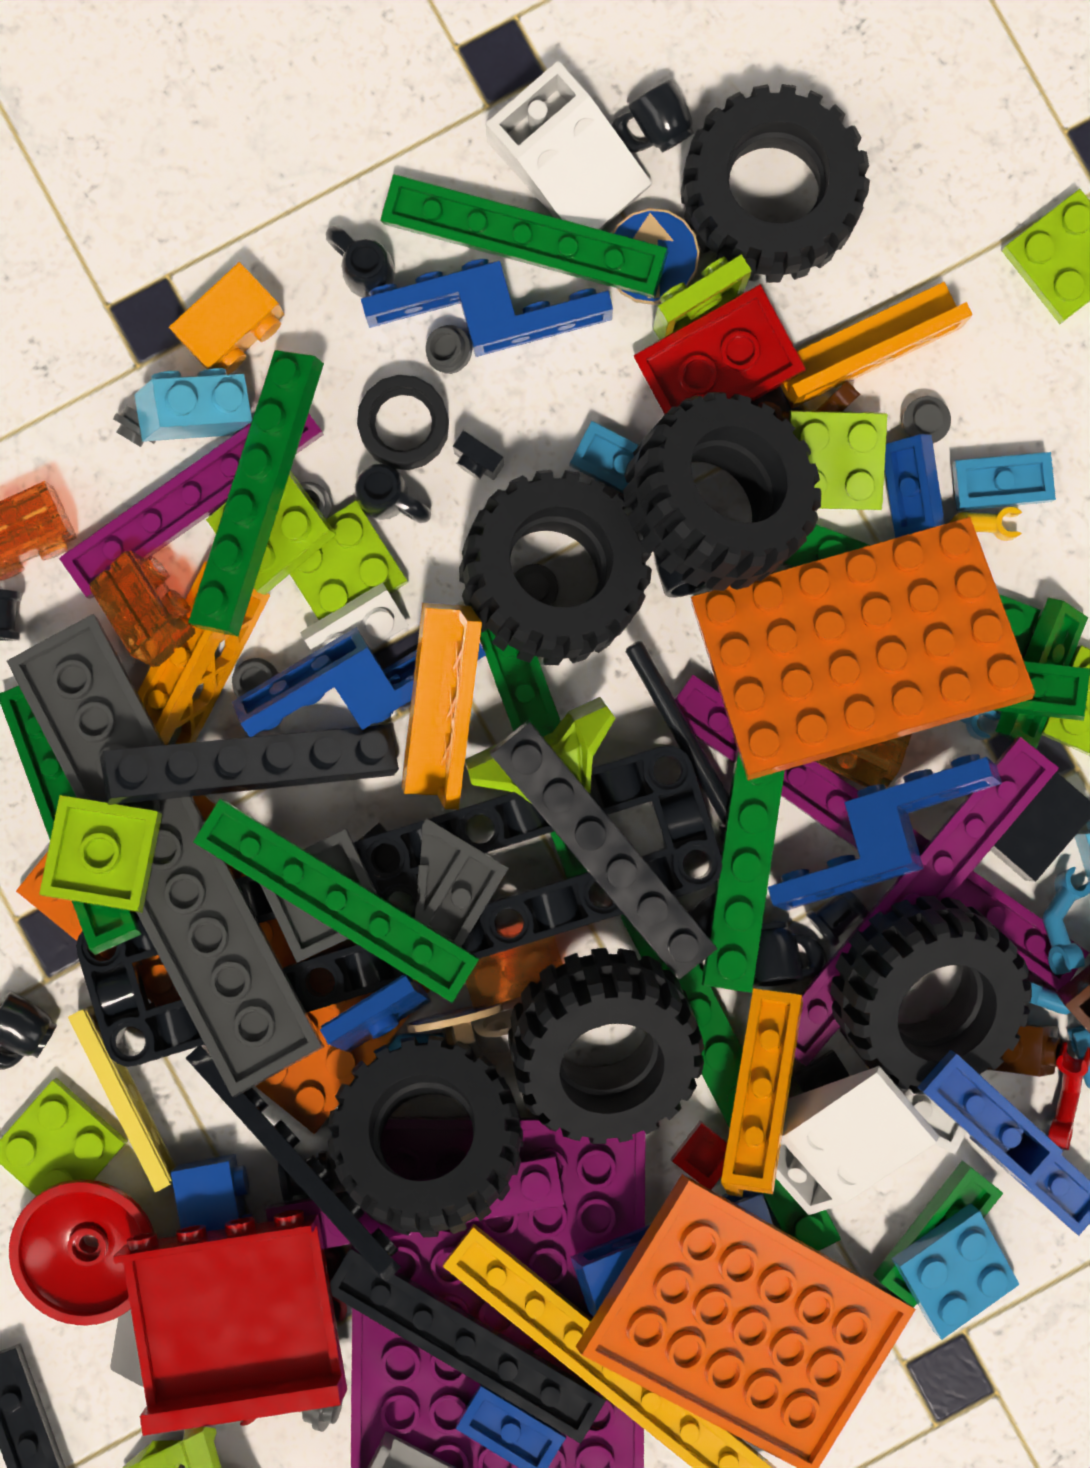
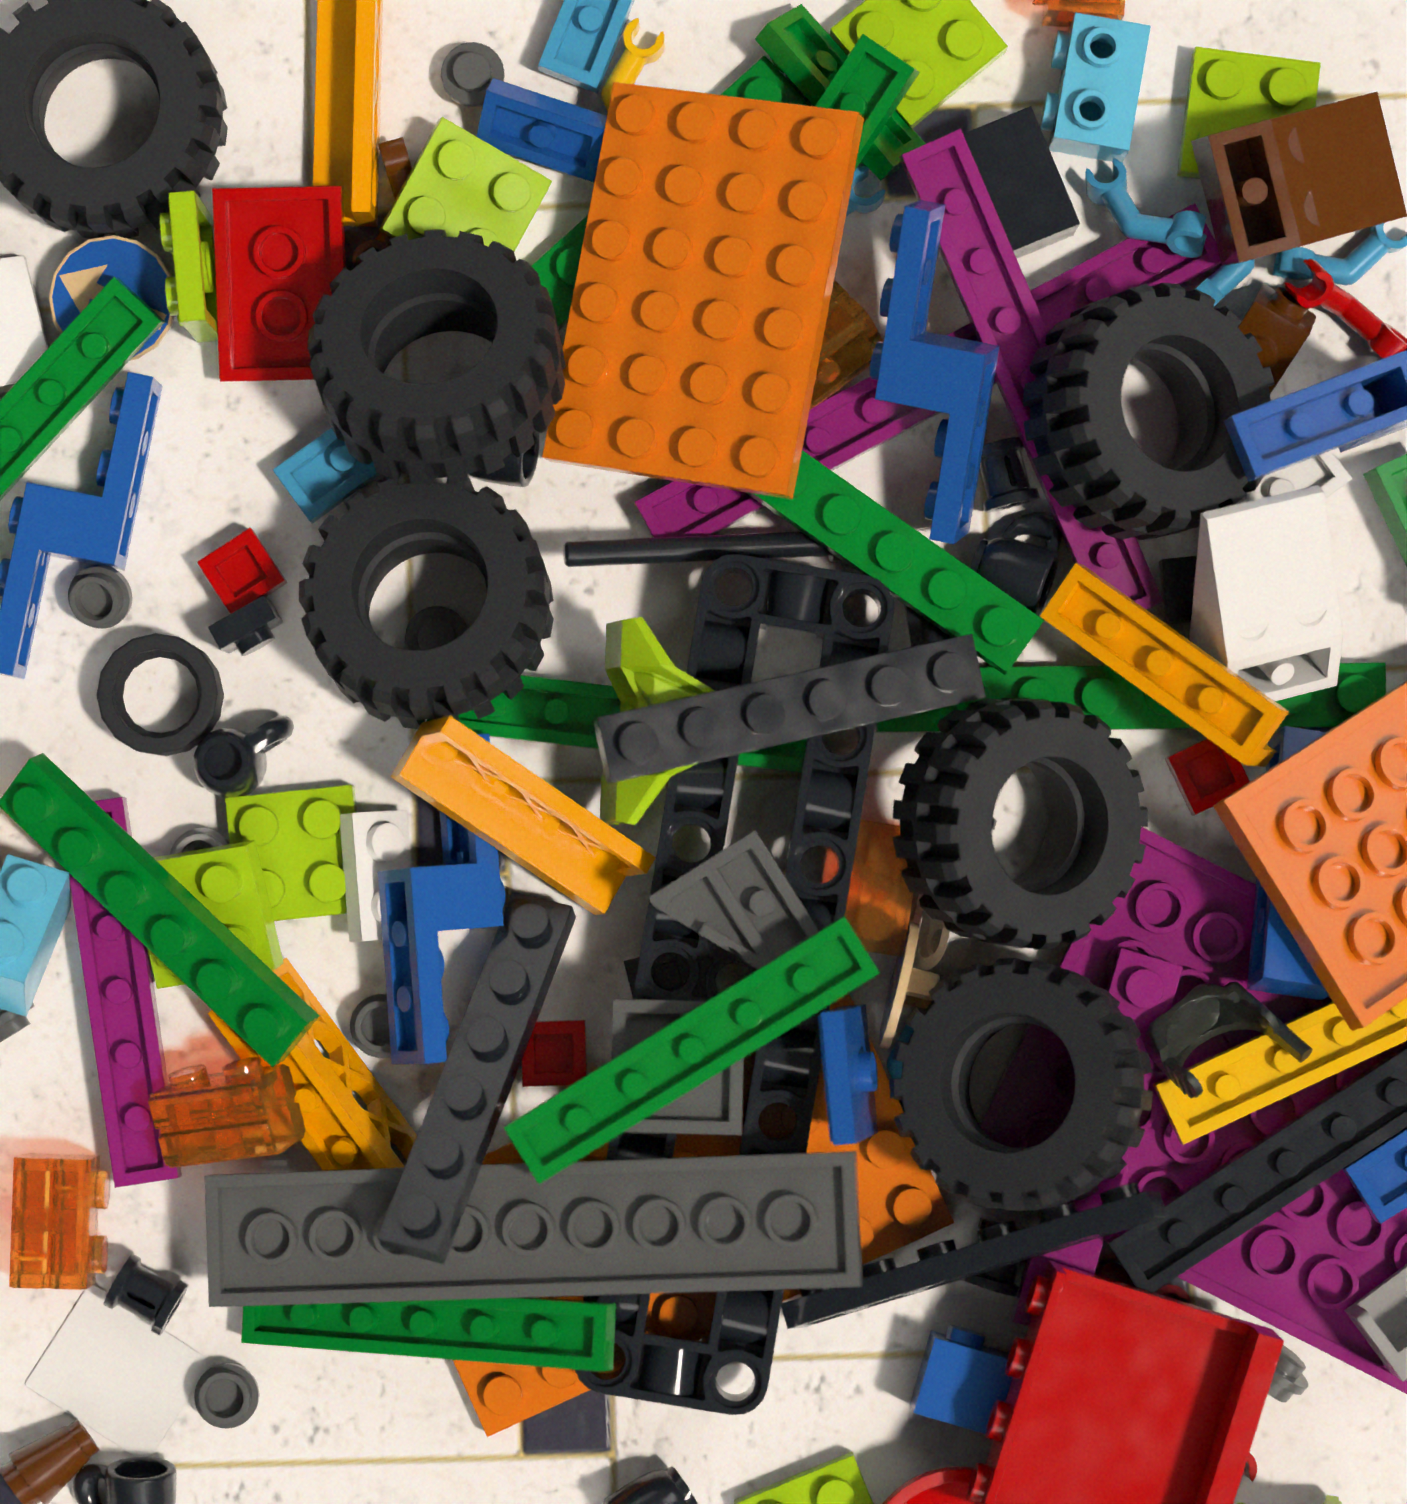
camera: 65 degrees left, 0 degrees up
(100, 853) = (497, 1301): lime plate -> none
(125, 1101) = (798, 1427): light yellow tile -> none
(294, 808) = (555, 1054): none -> red plate
(513, 435) = (242, 571): none -> red plate
(540, 1237) = (1205, 1014): none -> pearl dark grey helmet

